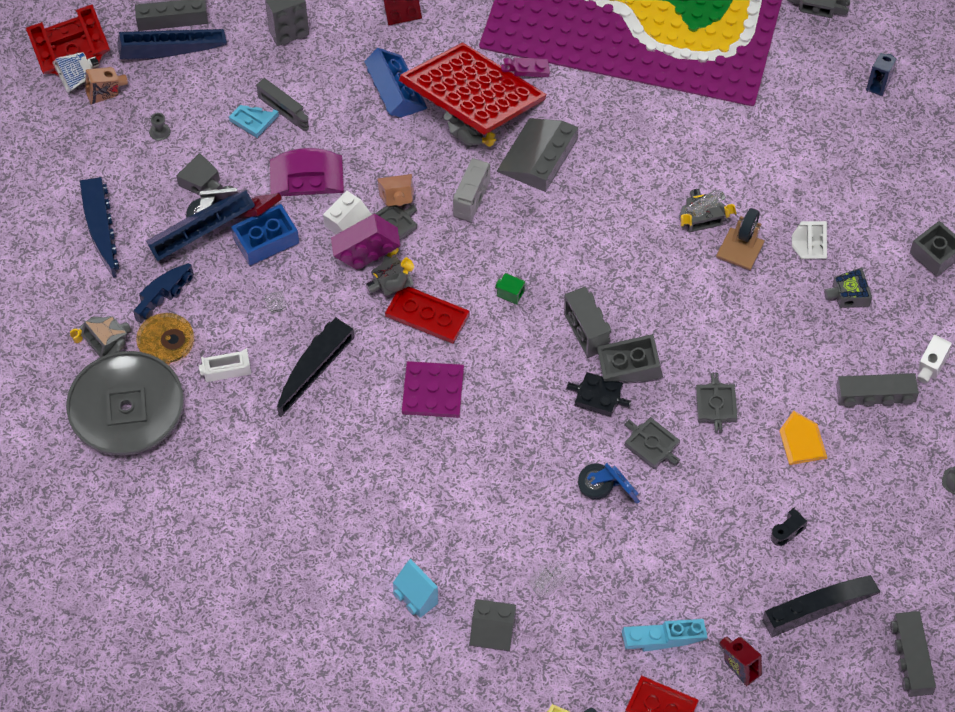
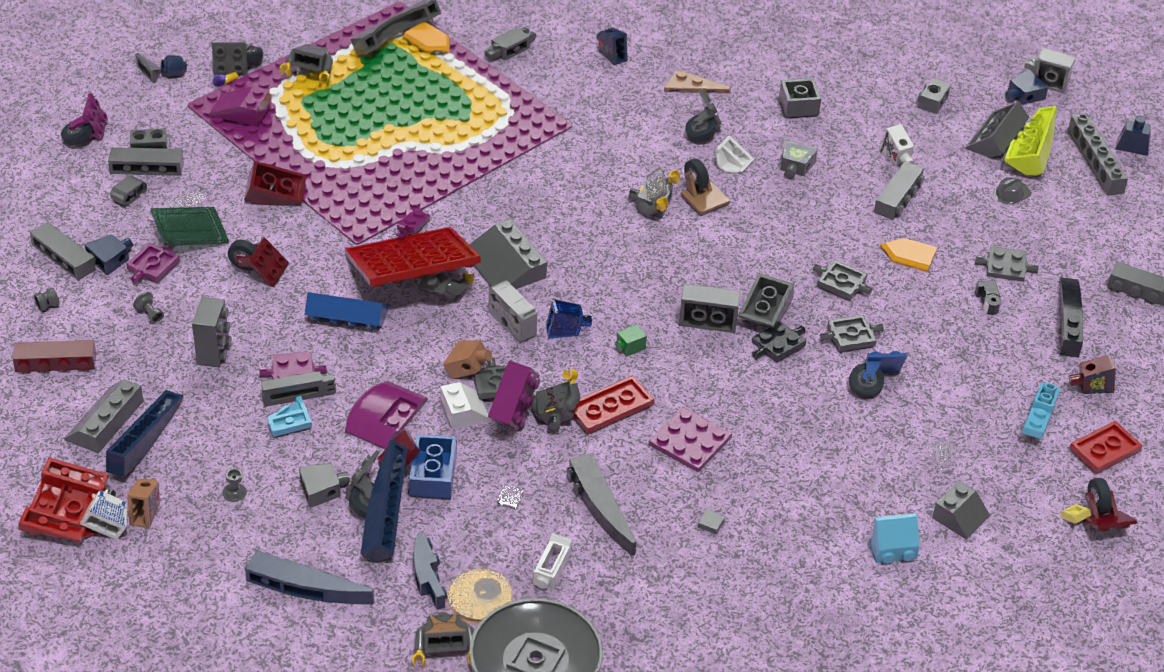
camera: 60 degrees left, 15 degrees down
(306, 90) = (291, 364): none -> plate
(351, 450) = (711, 521): none -> tile
(494, 230) = (566, 319): none -> clear blue torso
(845, 196) = (703, 126): none -> plate
(850, 523) = (1006, 263): none -> plate
(890, 156) = (691, 83): none -> wing

